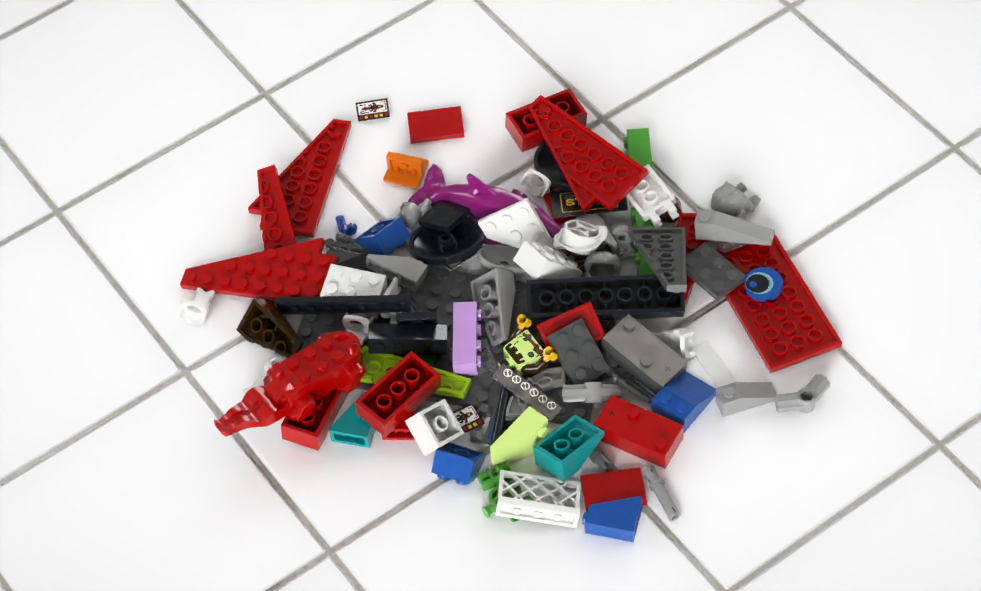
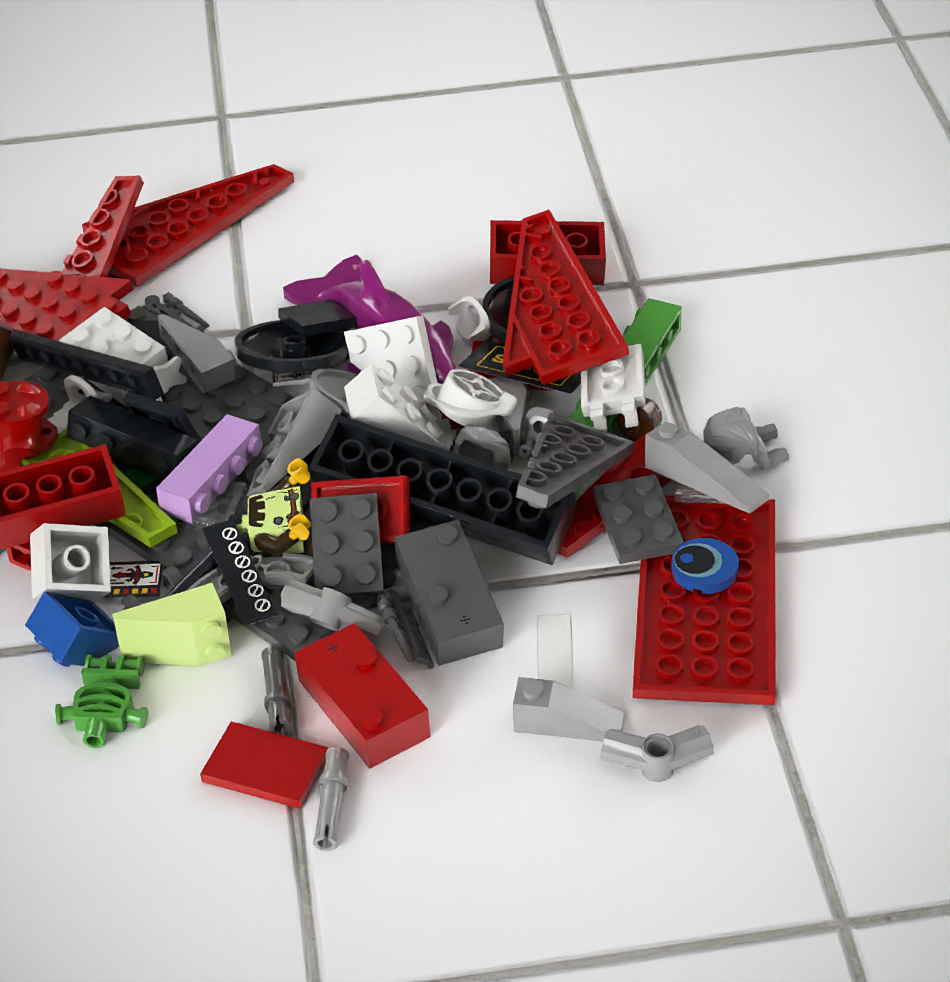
camera: 25 degrees right, 10 degrees down
(344, 228) = (184, 290): clear blue arm -> none
(372, 109) = (335, 173): piece -> none
(384, 236) = (220, 313): blue slope -> none
(405, 170) = (315, 248): orange bracket -> none
(411, 213) = (280, 296): light grey piece -> none
(435, 124) = (401, 215): red tile -> none
(537, 509) = (124, 739): white fence -> none
(567, 447) = (236, 670): teal slope -> none
(614, 518) = (232, 804): blue slope -> none
(678, 339) = (519, 591): white hair -> none
(683, 399) = (463, 679): blue slope -> none

